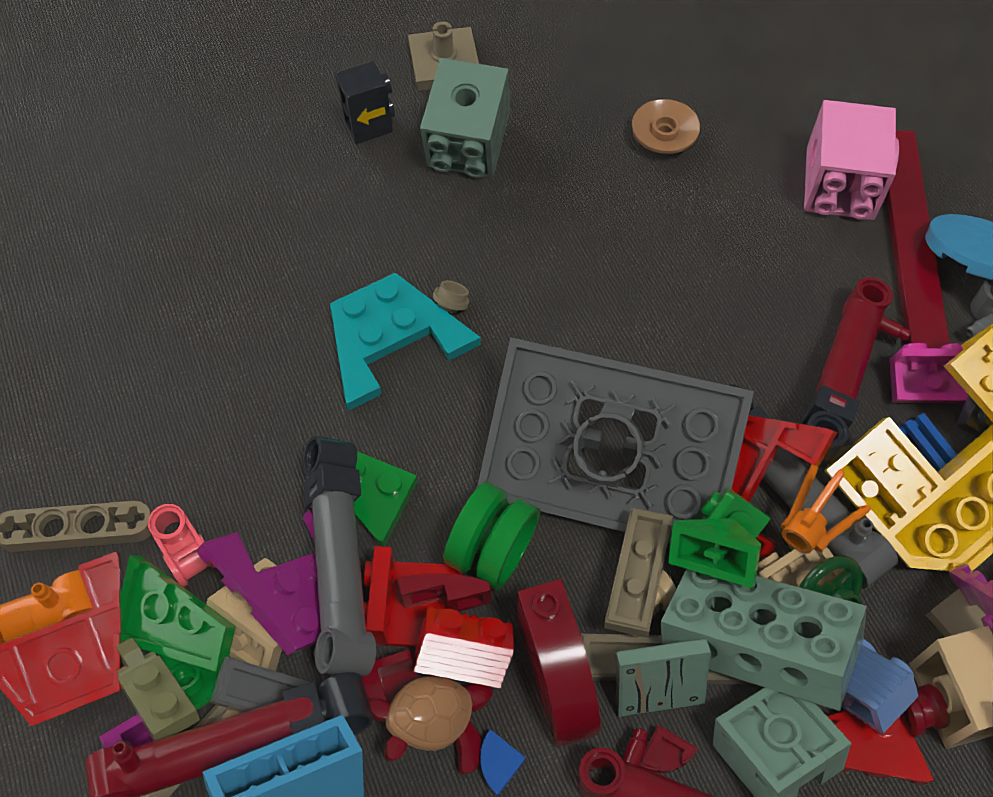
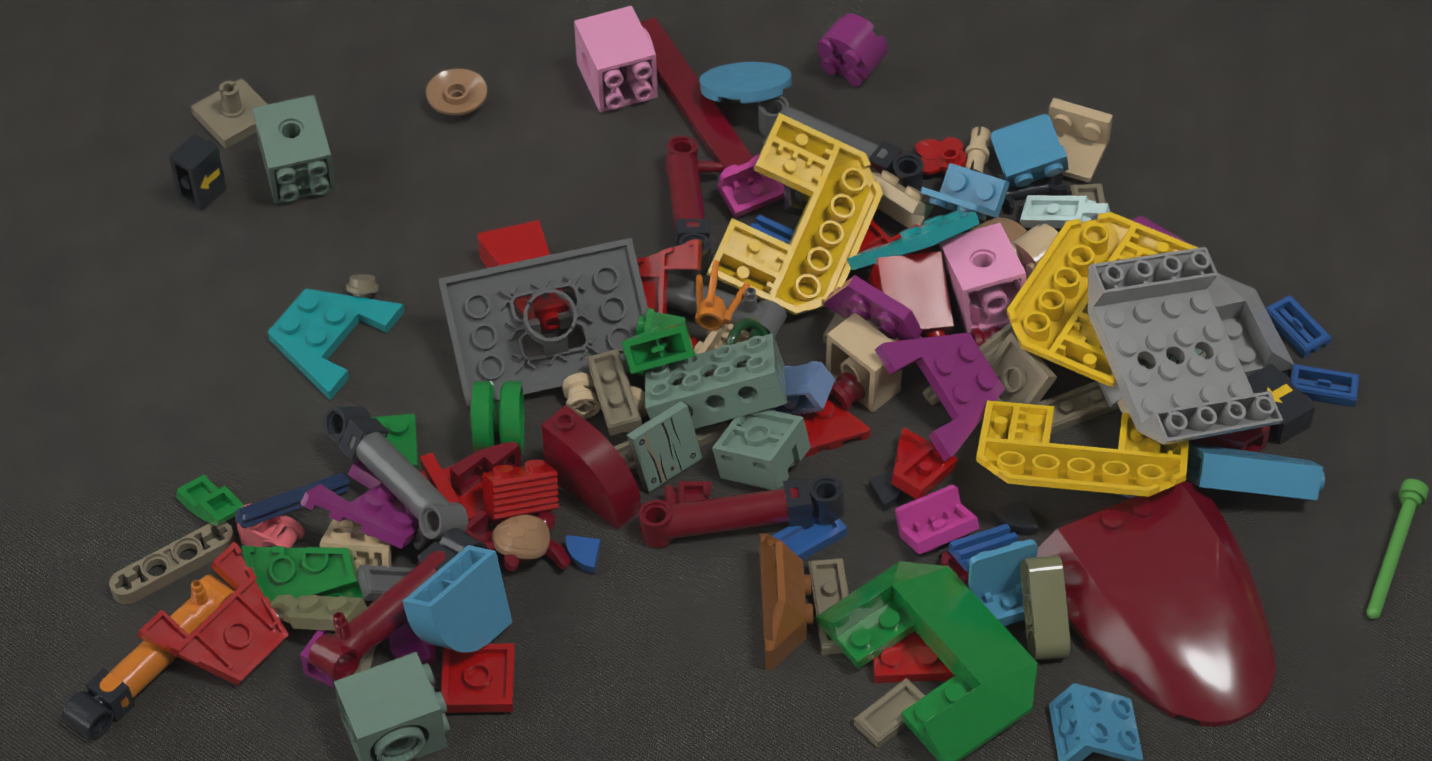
camera: 30 degrees left, 10 degrees down
(150, 474) = (208, 501): none -> green slope
(216, 524) = (287, 501): none -> dark blue axle
(604, 548) = (581, 399): none -> tan wheel
(631, 335) = (515, 245): none -> red slope

